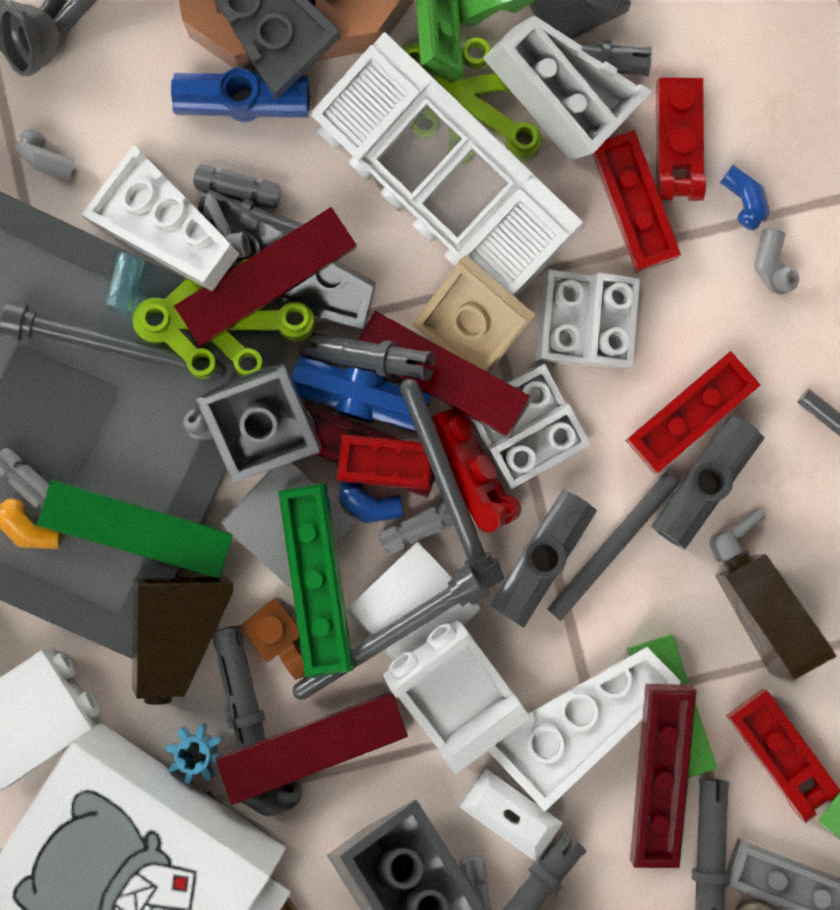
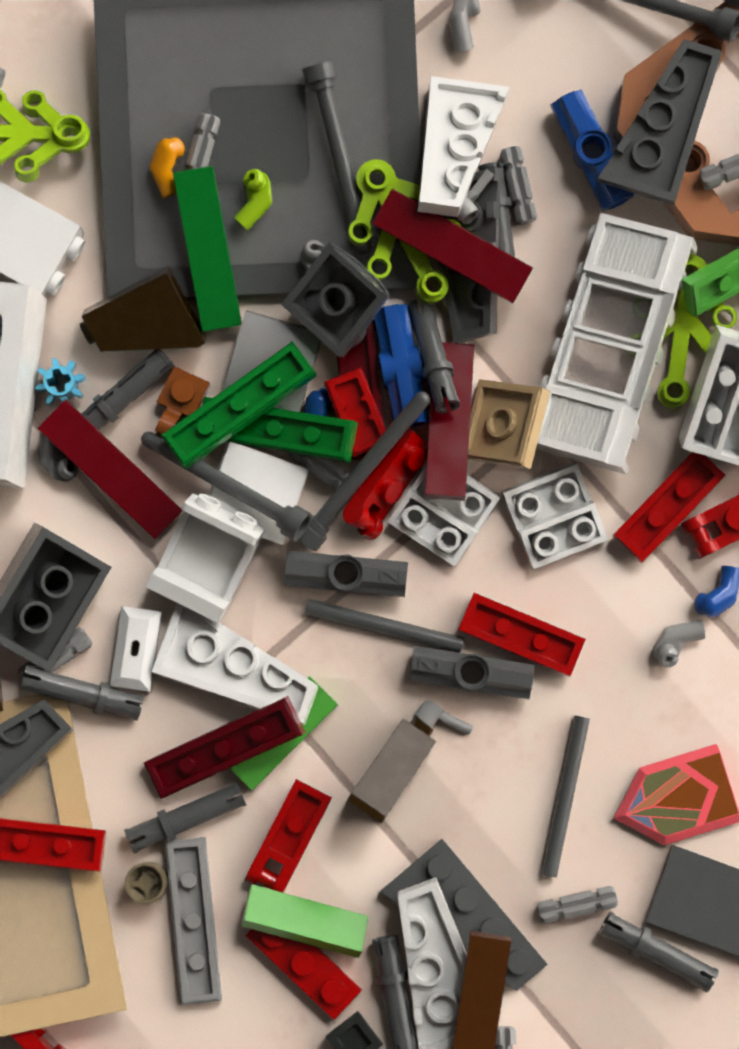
camera: 60 degrees right, 0 degrees up
(109, 449) = (258, 198): none -> lime arm
(124, 284) = (391, 140): clear light blue pin -> none
(378, 531) = (300, 434): none -> green tile

